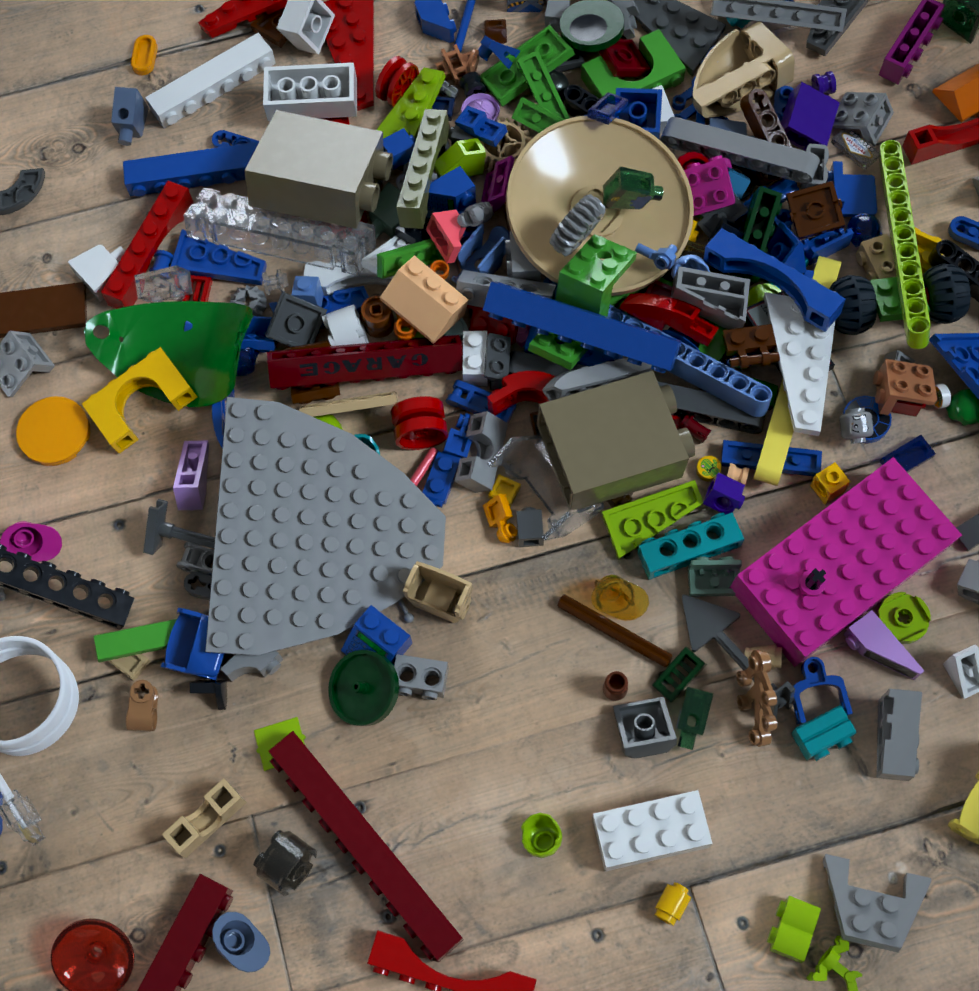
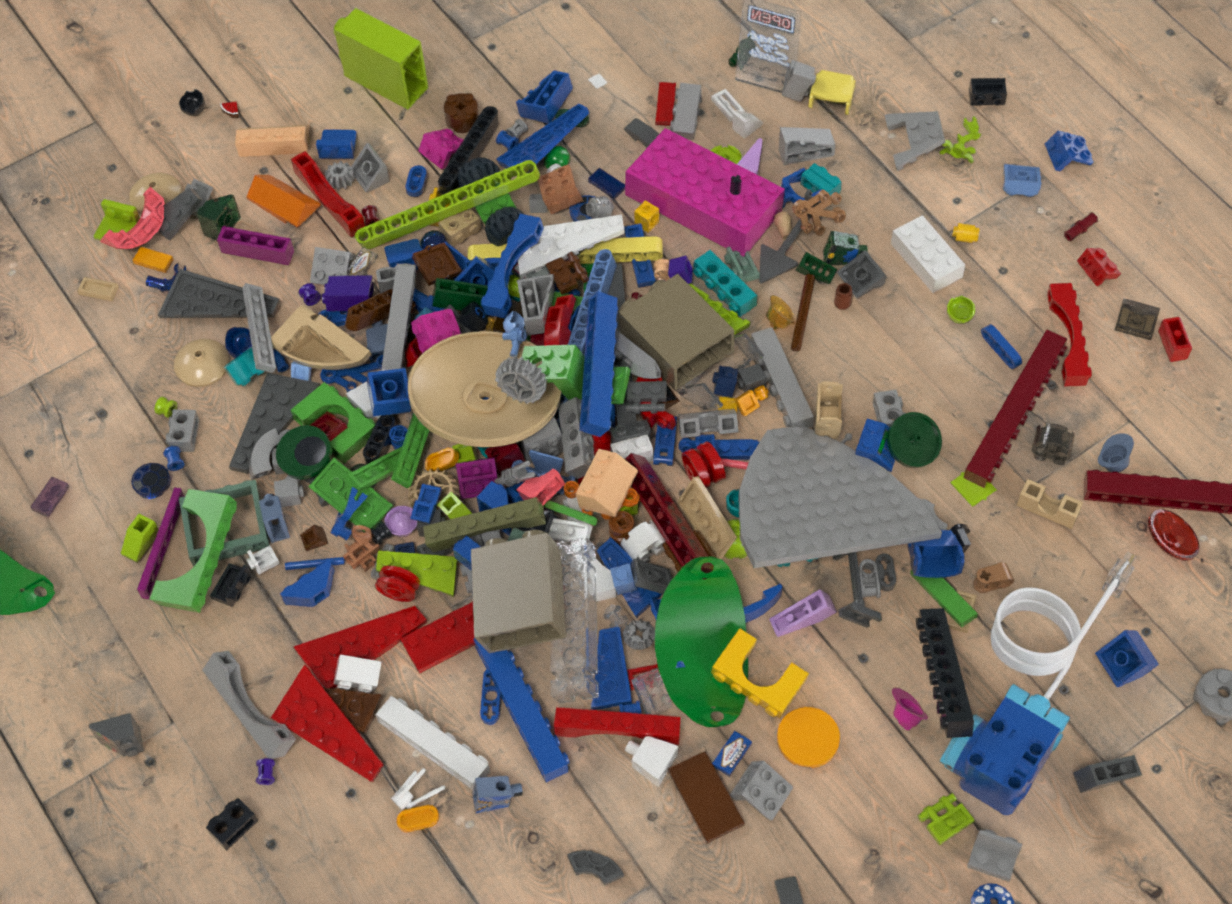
camera: 110 degrees left, 10 degrees down
(72, 350) = (732, 753): none -> tile
(168, 46) = (403, 797): none -> white plant
(311, 90) = (431, 642): white brick -> none
(466, 868) = (1001, 346): none -> blue beam
(519, 562) = (782, 380): none -> light grey brick
(533, 489) = (725, 381): none -> dark blue brick
(536, 378) = (646, 392): none -> dark grey plate
(608, 108) = (401, 398): clear blue tile -> none
(630, 189) = (473, 355): clear green torso -> none
(794, 928) = (949, 170): lime brick -> none
(926, 171) = (370, 214): none -> dark red bush

